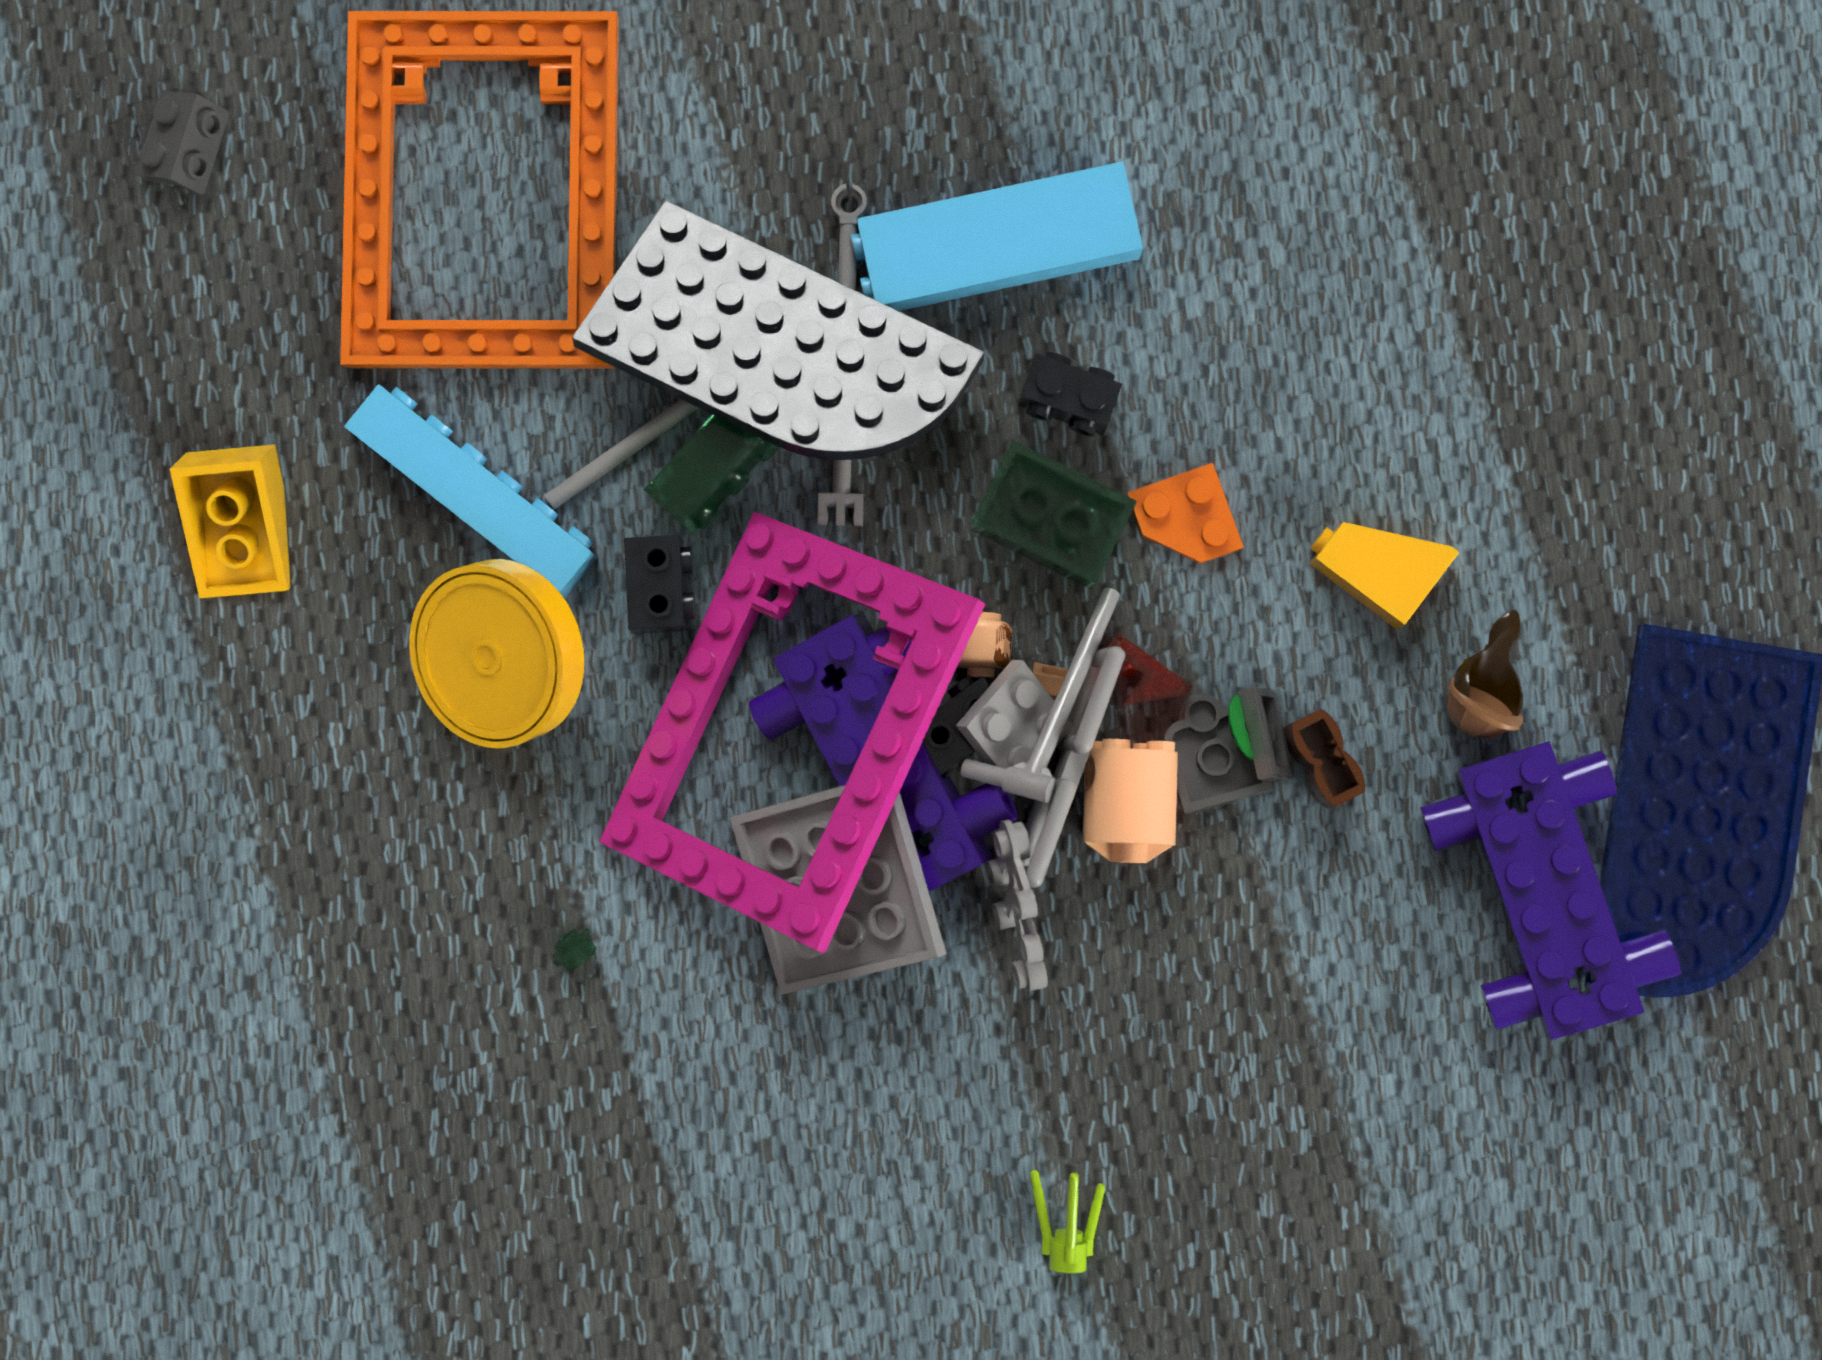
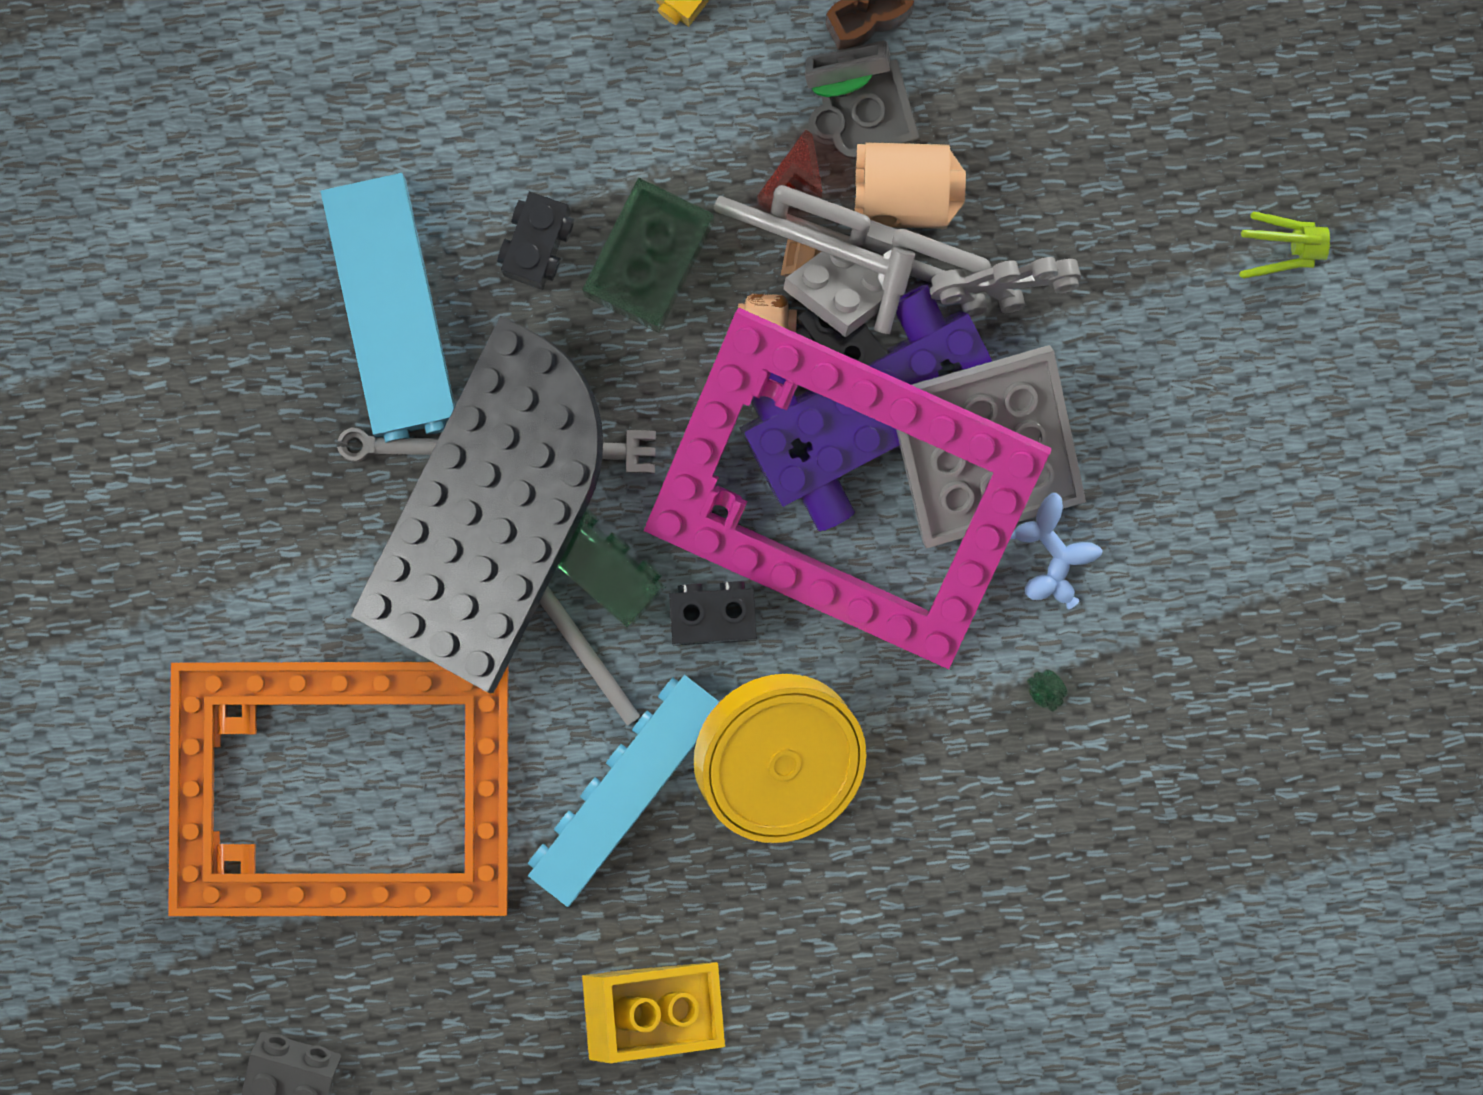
camera: 90 degrees left, 0 degrees up
(722, 980) = (1075, 554): none -> light blue piece
(1188, 515) = (645, 134): orange plate -> none

